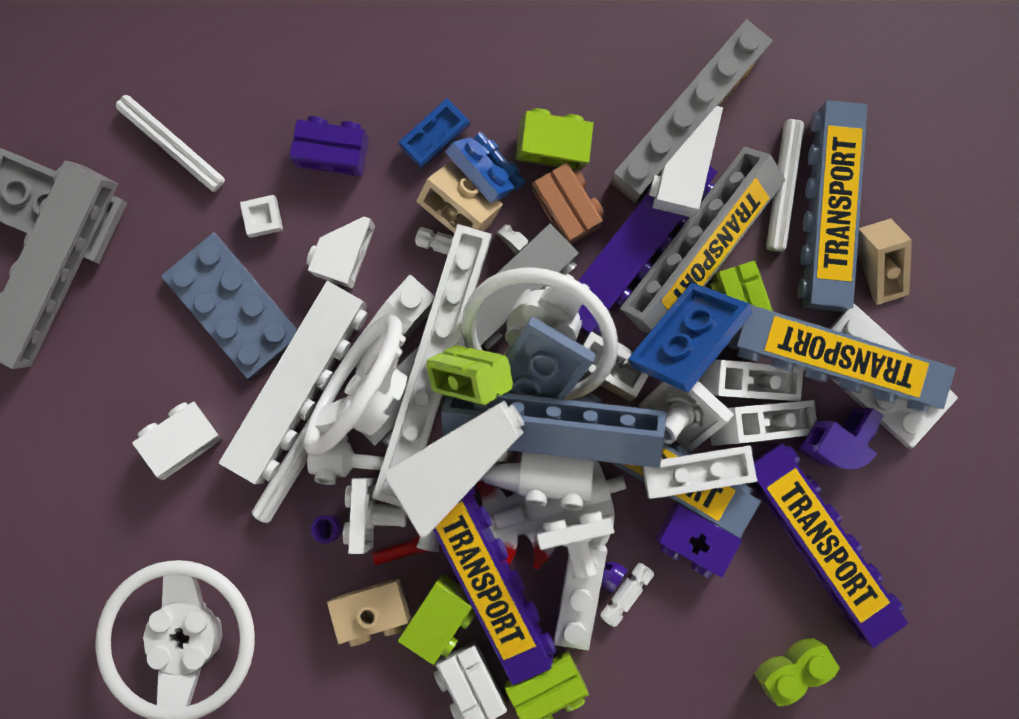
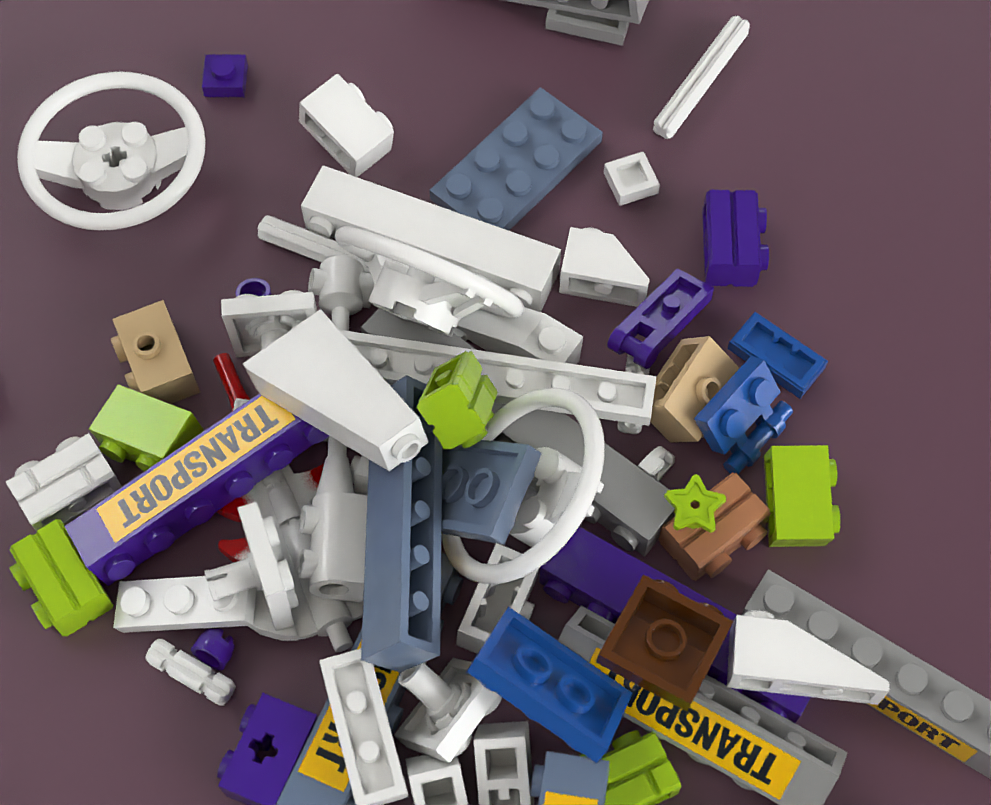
camera: 80 degrees right, 20 degrees down
(102, 541) = (224, 75): none -> dark purple plate
(393, 213) = (660, 317): none -> dark purple plate
(556, 223) = (694, 518): none -> lime plate
(667, 252) = (665, 641): none -> reddish brown plate

